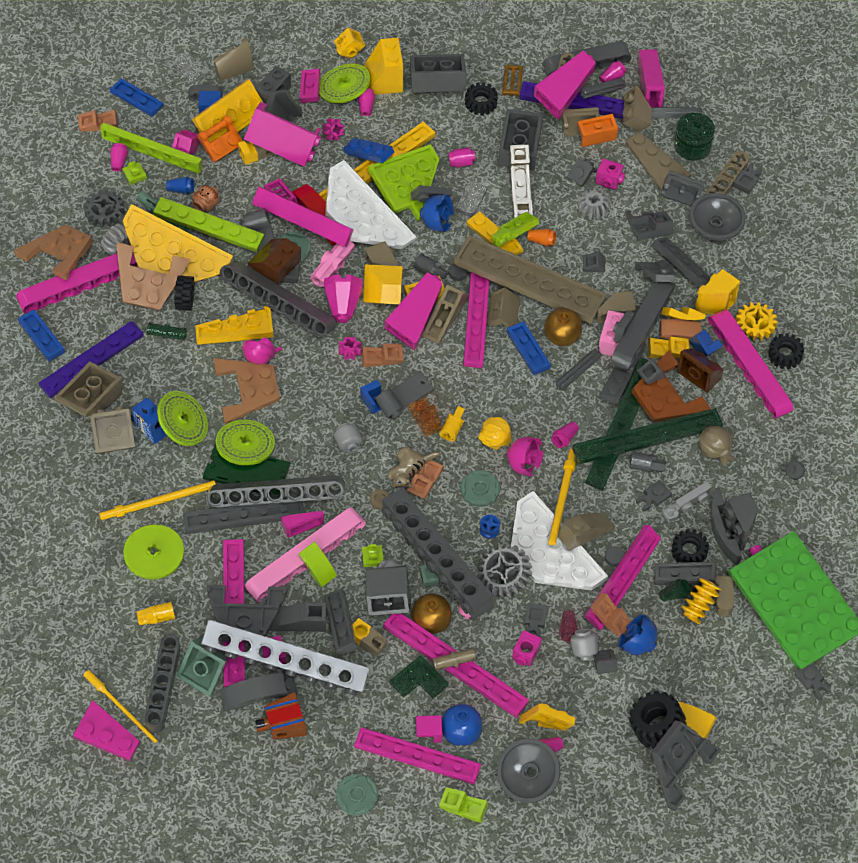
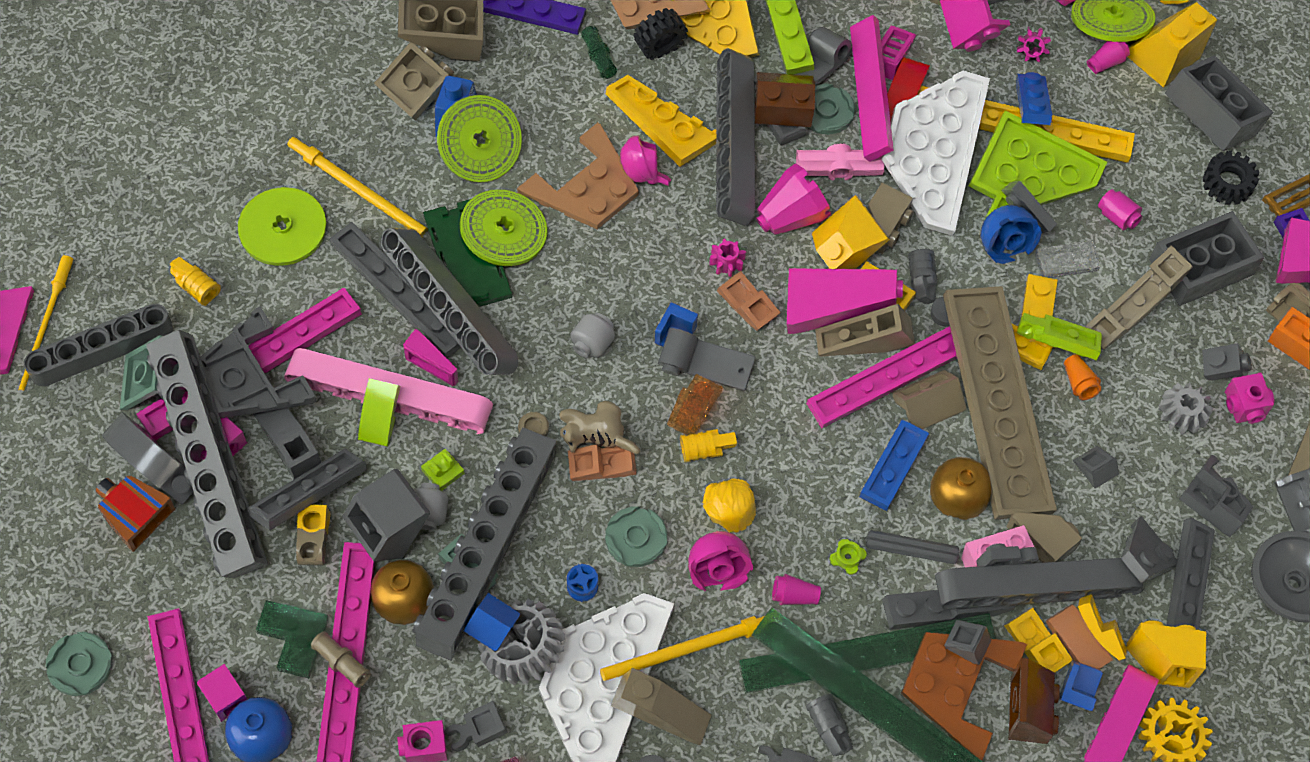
camera: 55 degrees right, 5 degrees up
(489, 572) = (491, 622): none -> blue panel
(562, 395) = (851, 548): none -> lime plate

